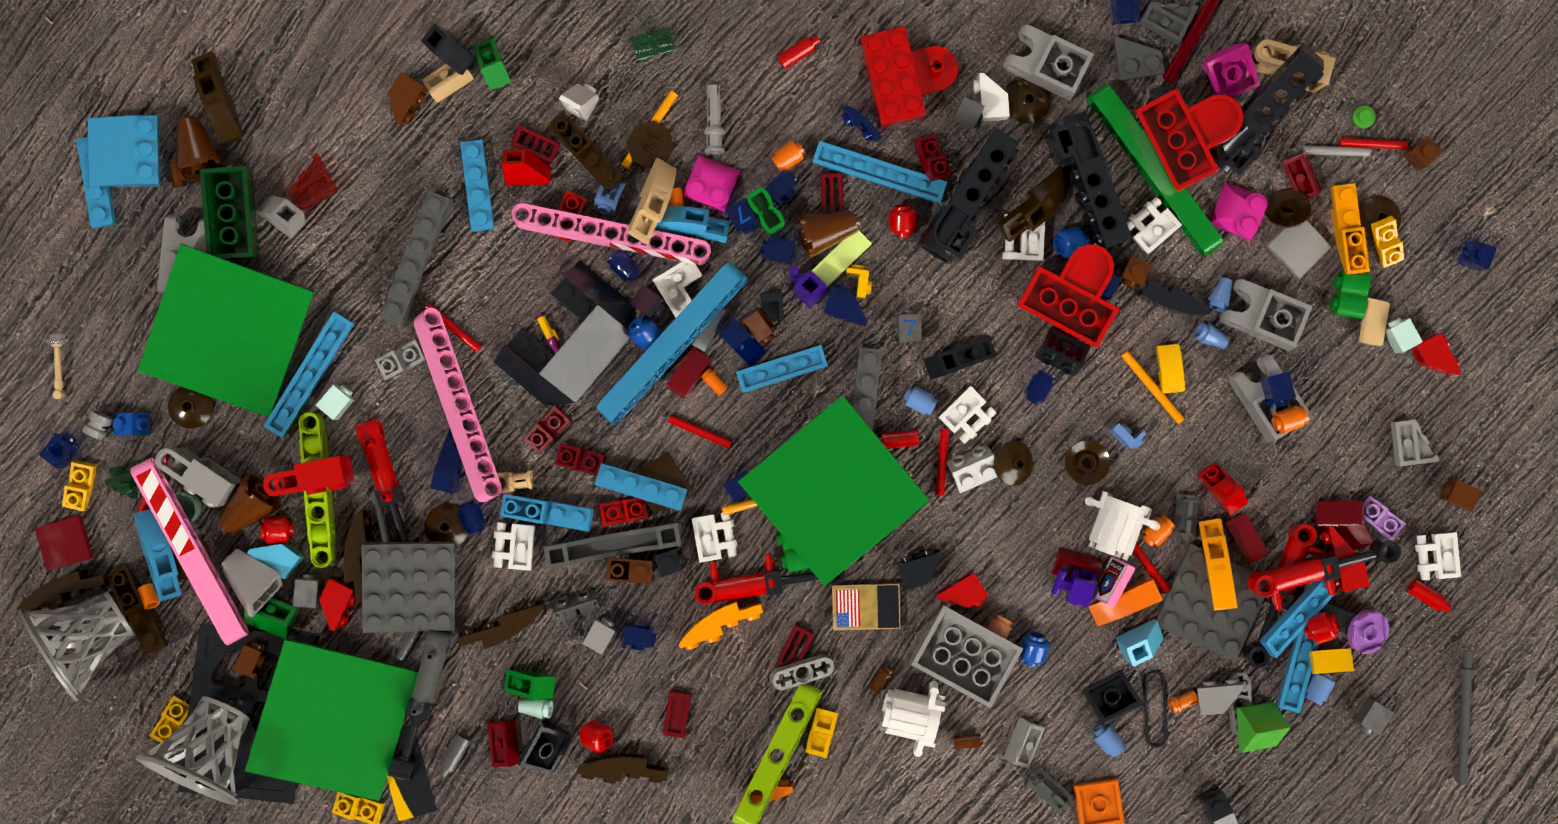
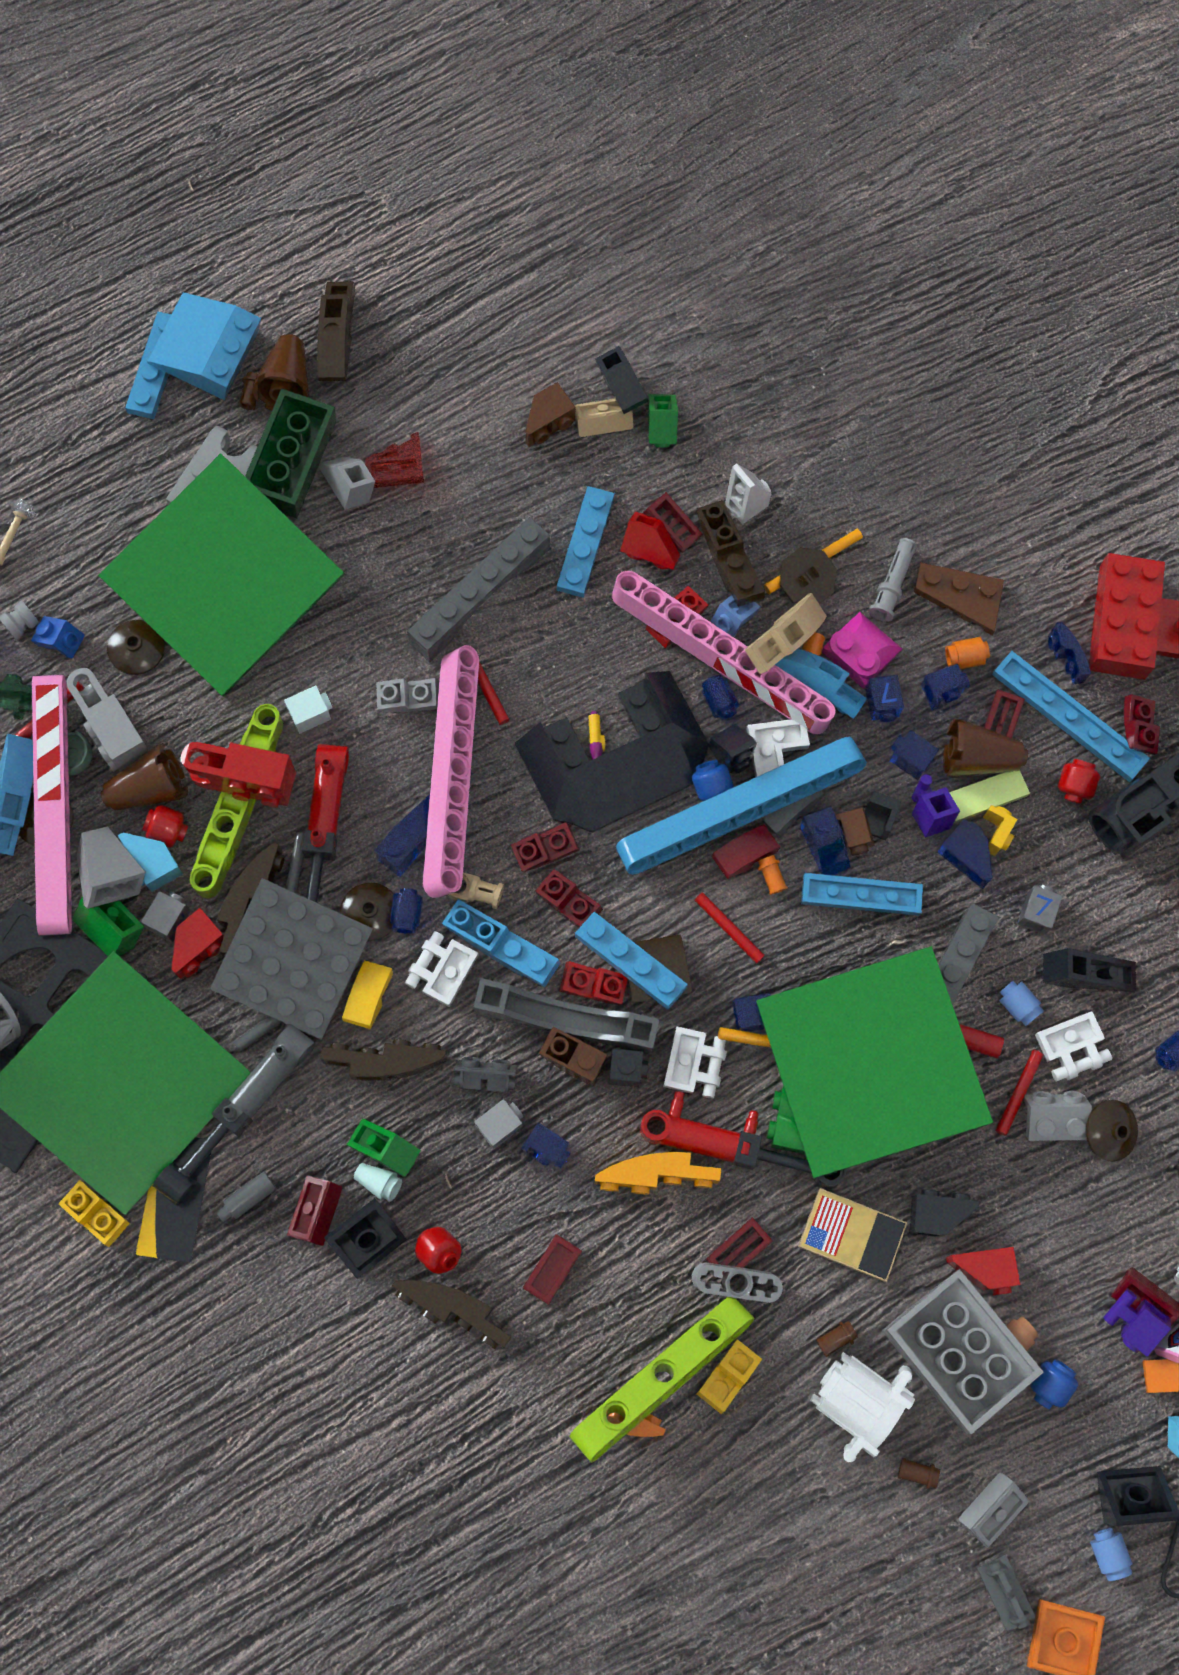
camera: 20 degrees right, 15 degrees down
(251, 659) = (57, 963): reddish brown brick -> none
(309, 375) = (291, 667): dark azure plate -> none
(470, 586) = (366, 994): none -> yellow slope
(653, 43) = (858, 468): clear green hips -> none
(767, 108) = (965, 593): none -> reddish brown wing
(769, 216) = (919, 707): green brick -> none
(797, 51) = (1023, 545): red cylinder -> none

